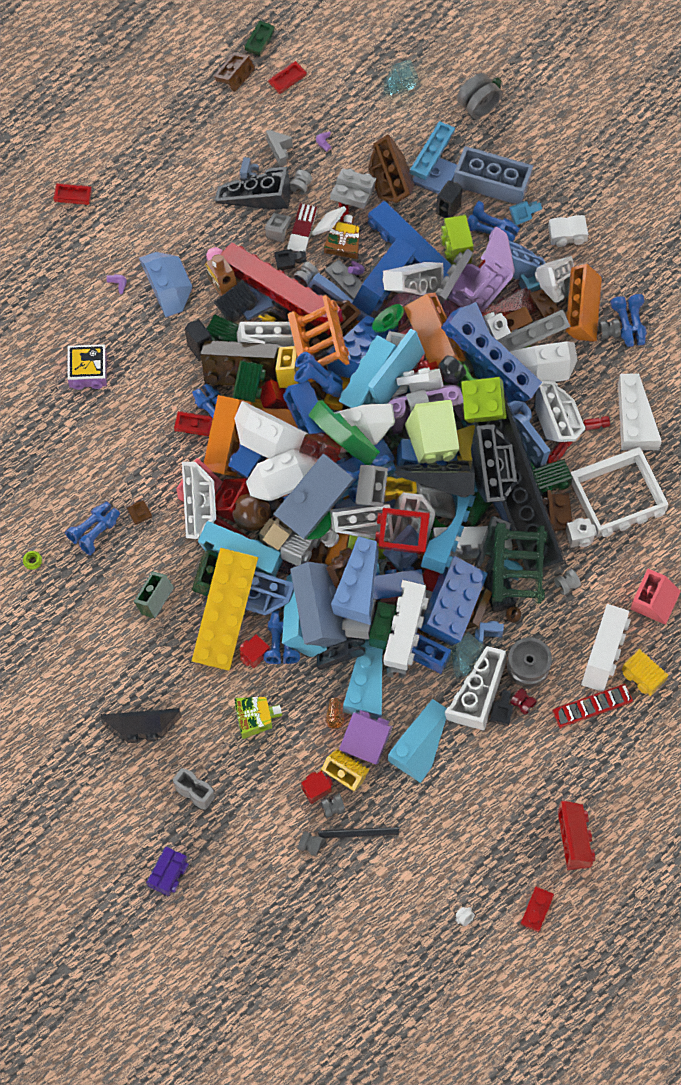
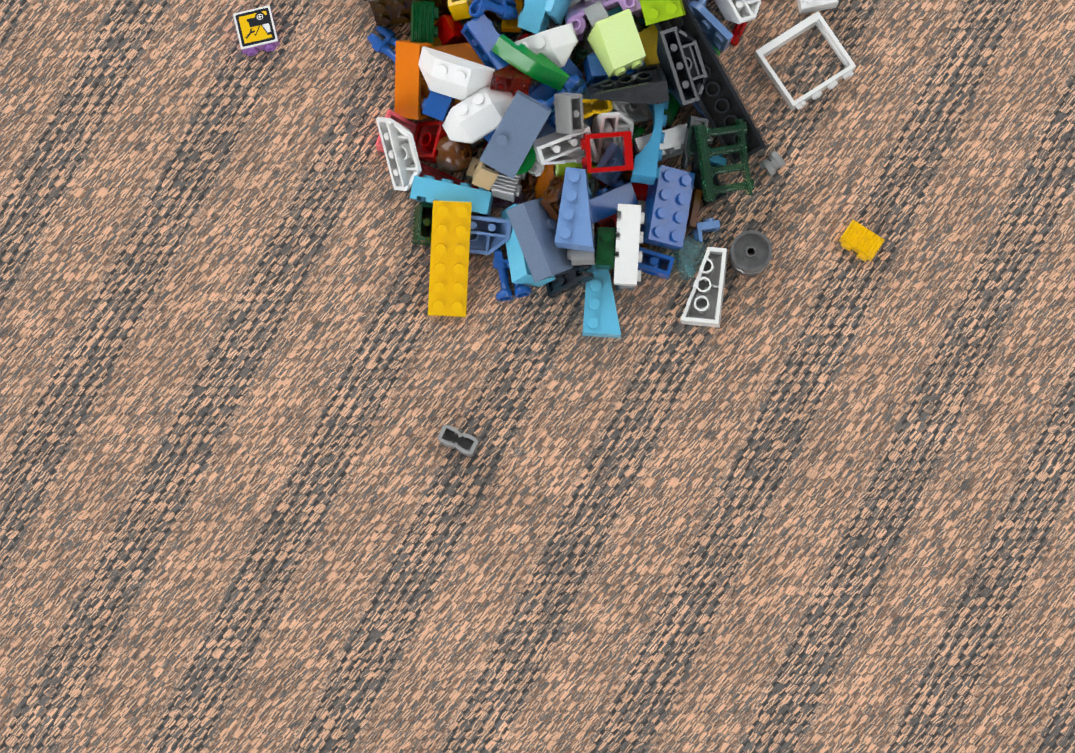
camera: 10 degrees left, 15 degrees up
(29, 555) = (250, 236): lime plate -> none
(87, 541) = (299, 215): blue piece -> none
(139, 512) = (343, 172): reddish brown tile -> none
(141, 724) = (394, 387): black wedge -> none
(153, 594) = (377, 256): brick -> none
(167, 871) = (451, 524): dark purple brick -> none
(193, 423) = (375, 70): red plate -> none
(253, 651) = (484, 293): red brick -> none
(255, 715) = (500, 356): torso -> none
(310, 843) = (578, 470): dark grey wheel -> none
(316, 786) = (573, 414): red brick -> none
(332, 805) = (592, 430): dark grey wheel -> none
(334, 714) = (576, 342): clear orange cone -> none
(345, 769) = (596, 393): yellow brick -> none
(358, 832) = (621, 450): black bar -> none
(366, 737) = (610, 358): medium lavender piece -> none
(418, 745) = (661, 354): medium azure wedge -> none
(464, 916) = (735, 510): white plate -> none
(501, 711) = (733, 306): black plate -> none
(517, 615) = (721, 206): reddish brown hinge -> none
(523, 701) = (747, 290): dark red wheel -> none
(537, 909) = (801, 490): red plate -> none
(553, 476) = (738, 57): dark green brick -> none
(558, 509) = (750, 90): reddish brown bracket -> none
(575, 835) = (824, 414): red slope -> none
(580, 532) = (770, 111): white brick -> none
(592, 706) = (817, 282): tile -> none
(606, 648) = (820, 223): white wedge -> none
(655, 597) = (859, 162): coral slope -> none

